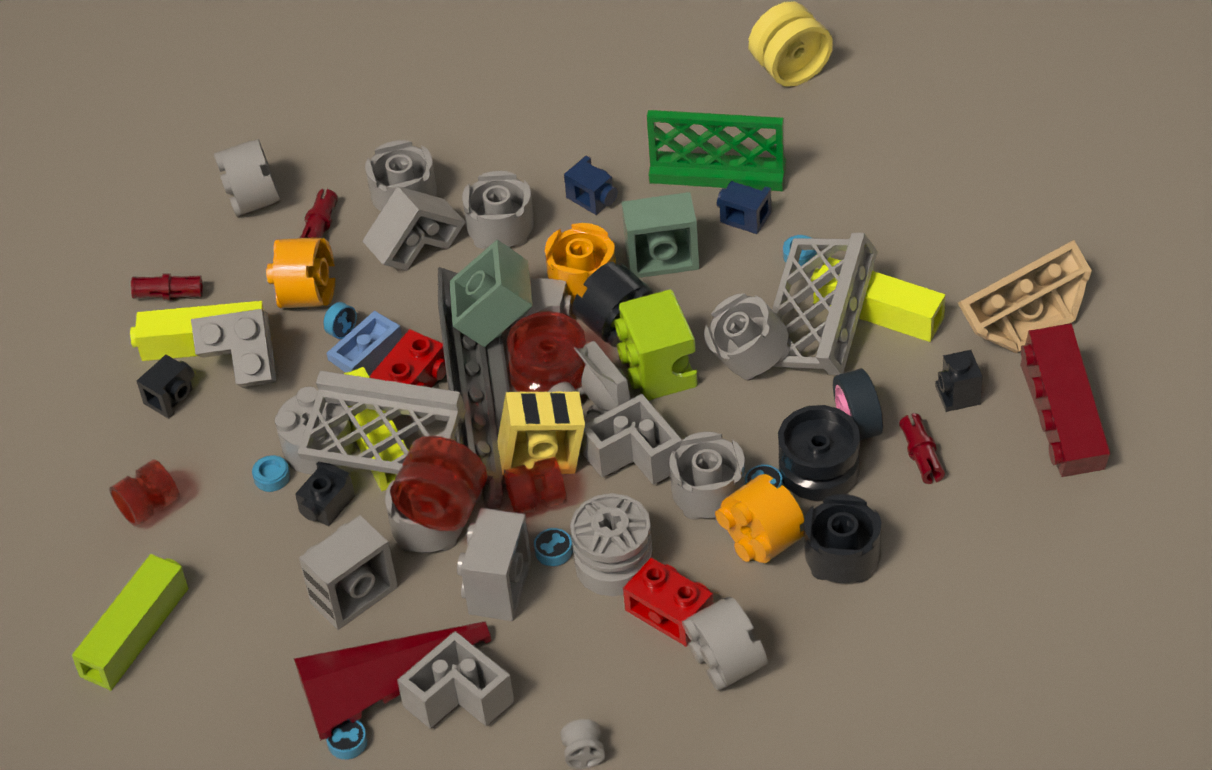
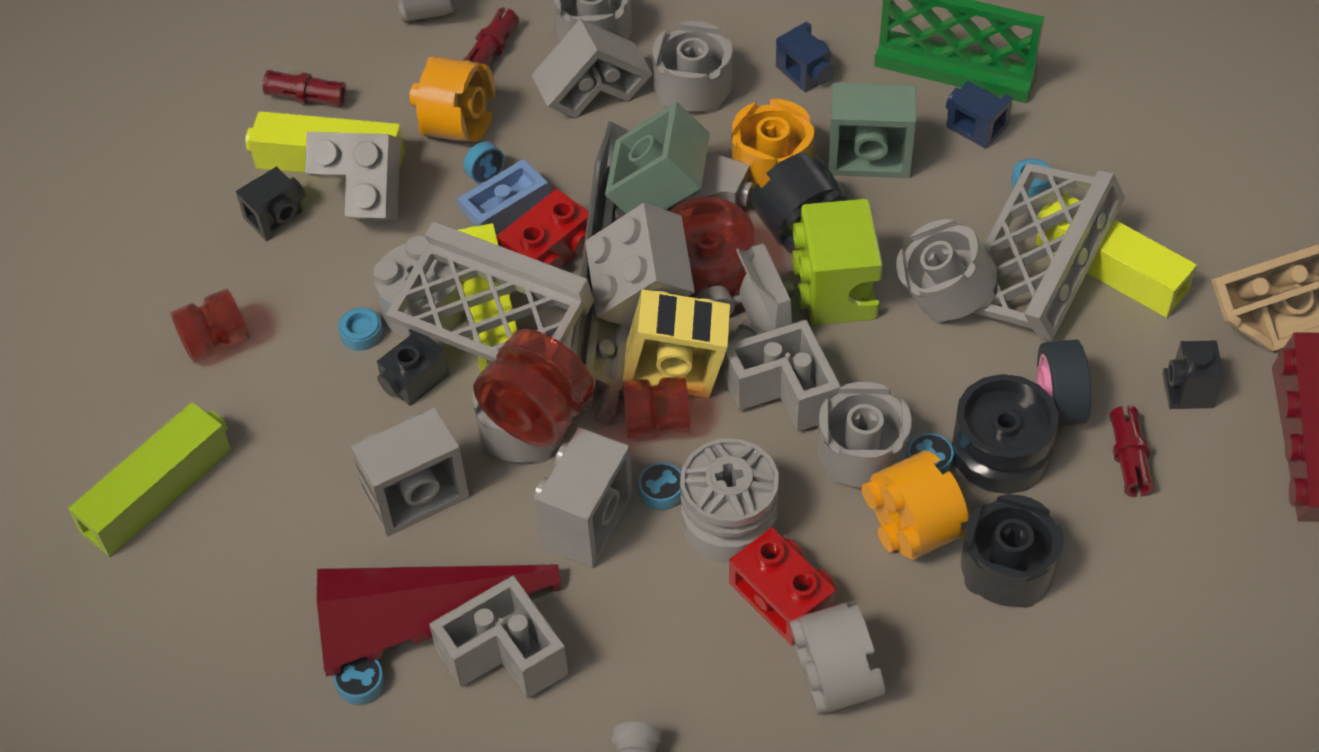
camera: 10 degrees right, 5 degrees up
(489, 368) = (634, 254): none -> light grey brick

